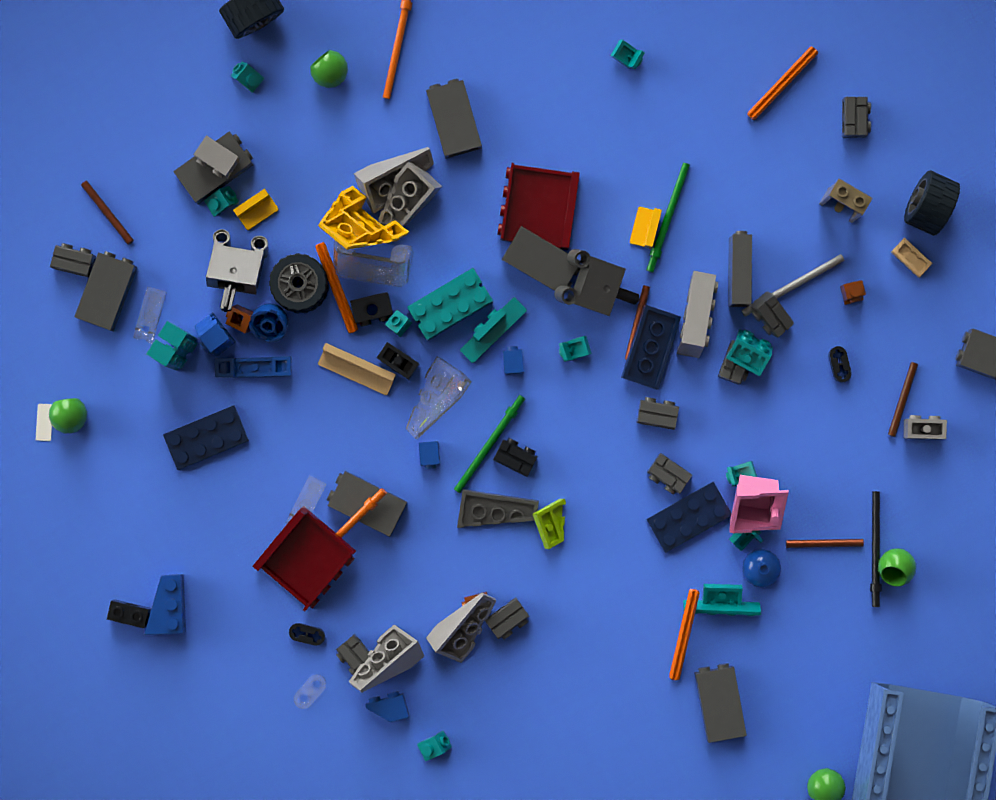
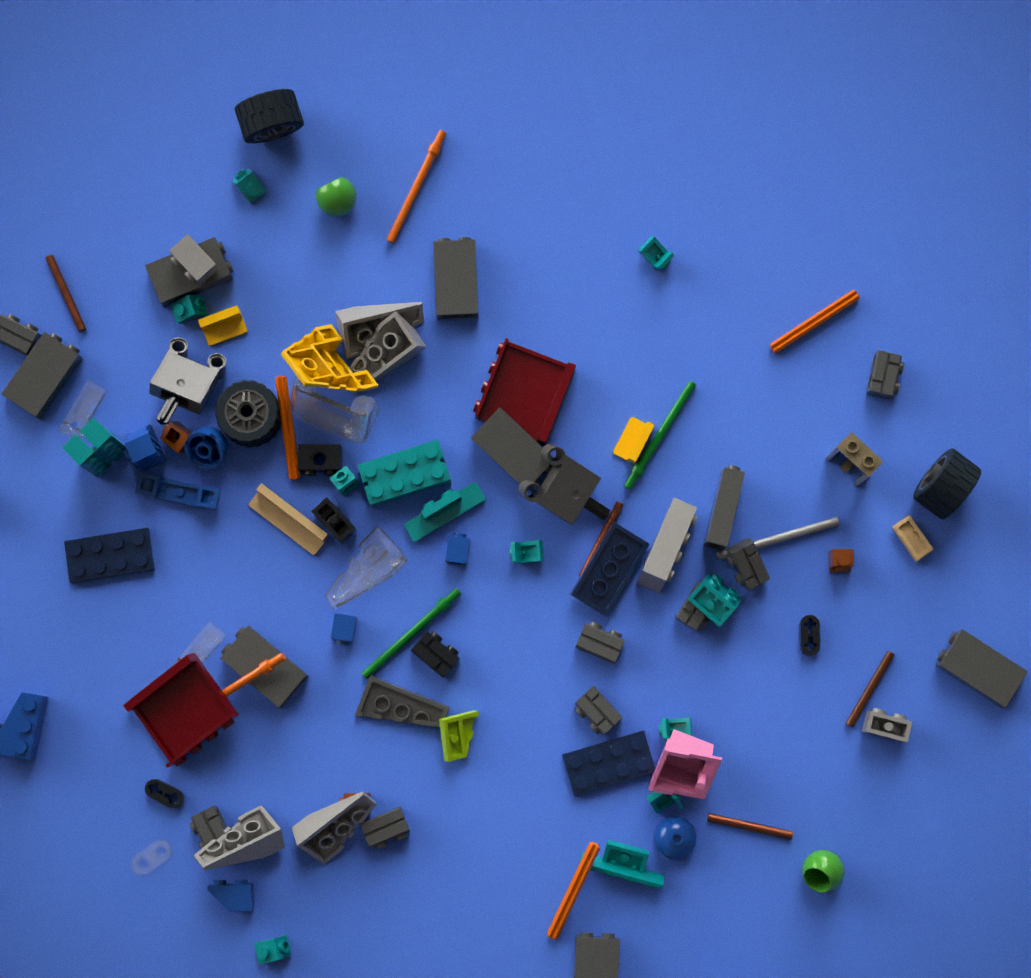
camera: 15 degrees right, 5 degrees down
(875, 587) = (795, 887): black bar -> none

